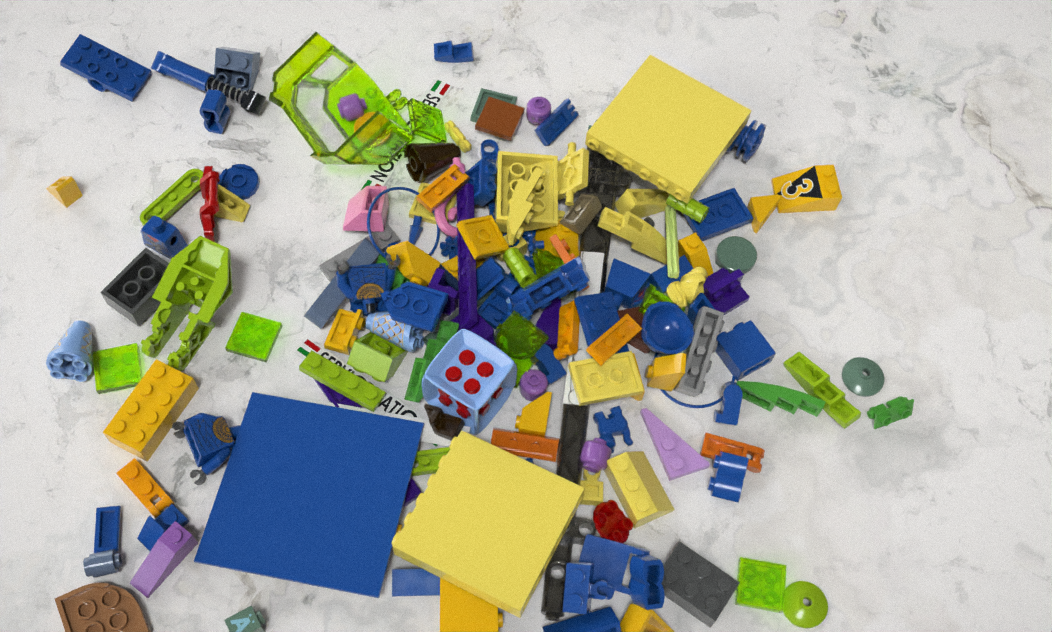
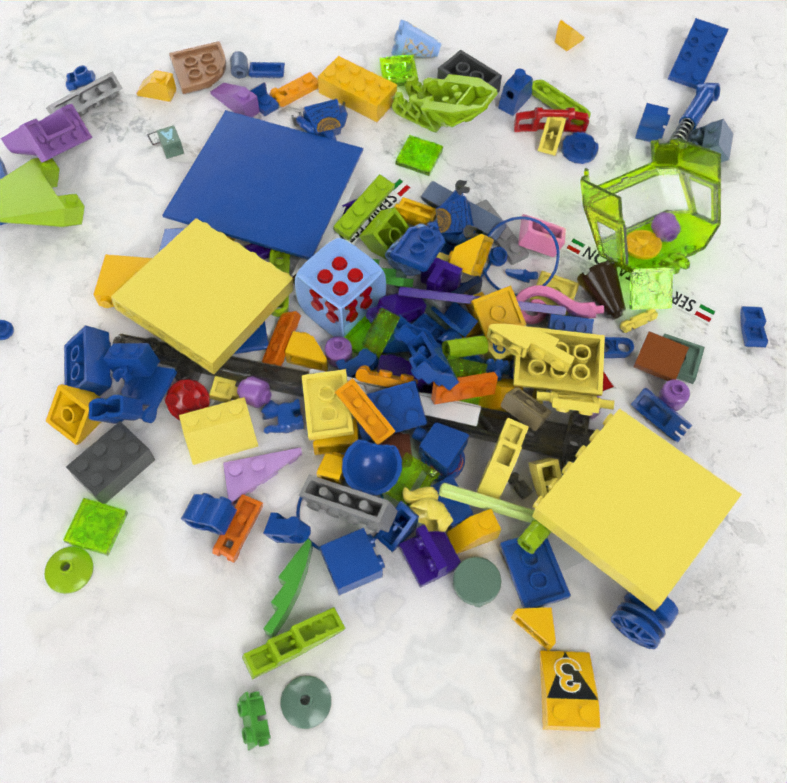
camera: 100 degrees right, 0 degrees up
(442, 188) = (561, 287): light orange plate -> none

